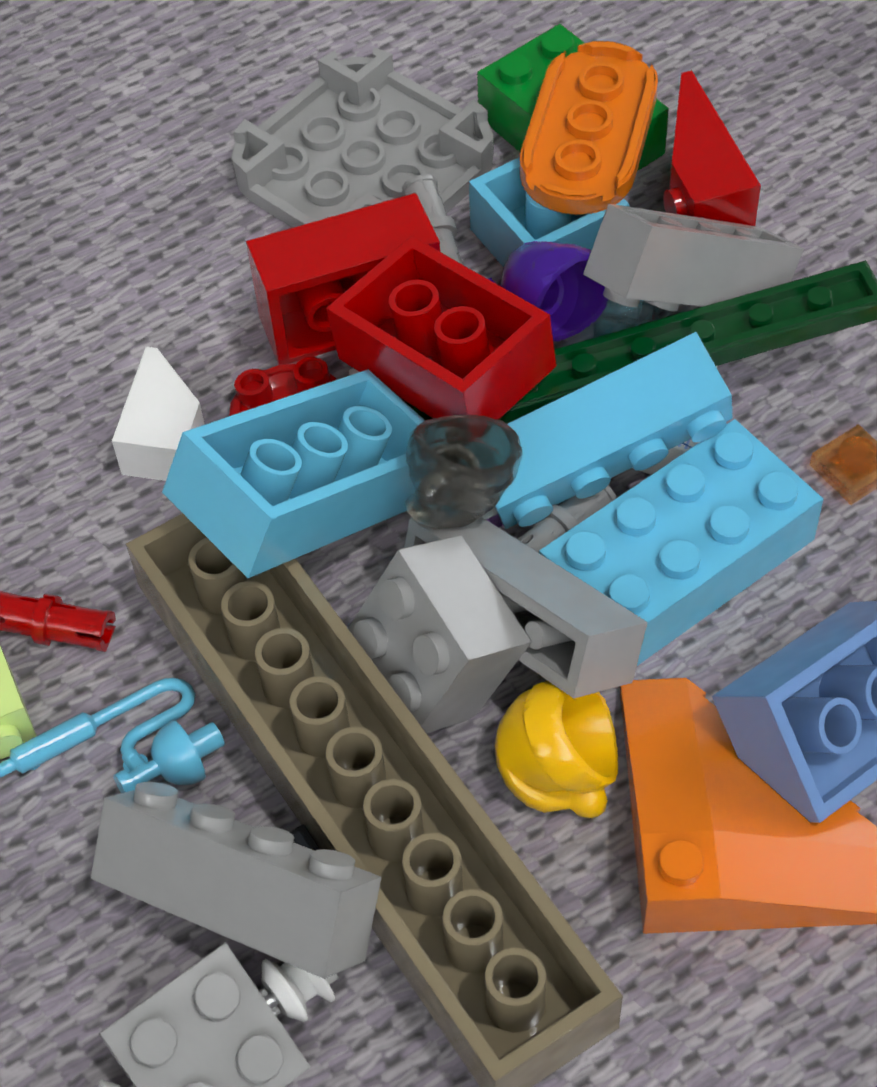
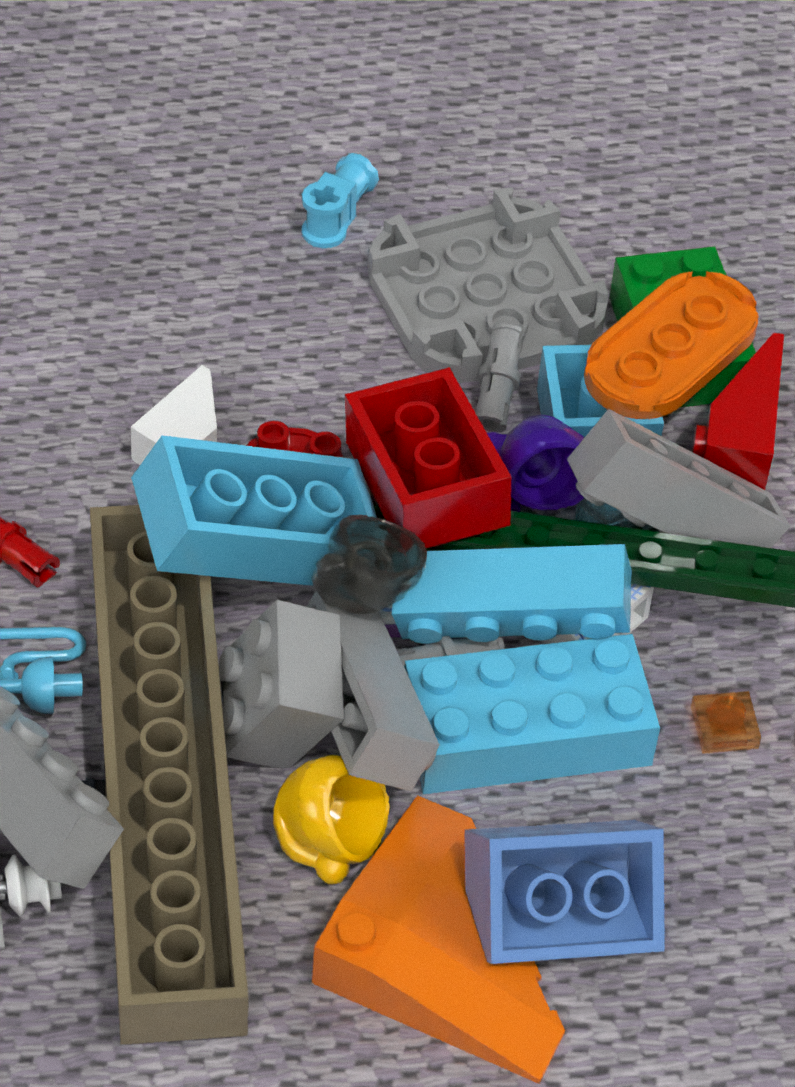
camera: 20 degrees right, 5 degrees down
(170, 134) = (334, 198): none -> medium azure connector
(315, 263) = (369, 353): red brick -> none

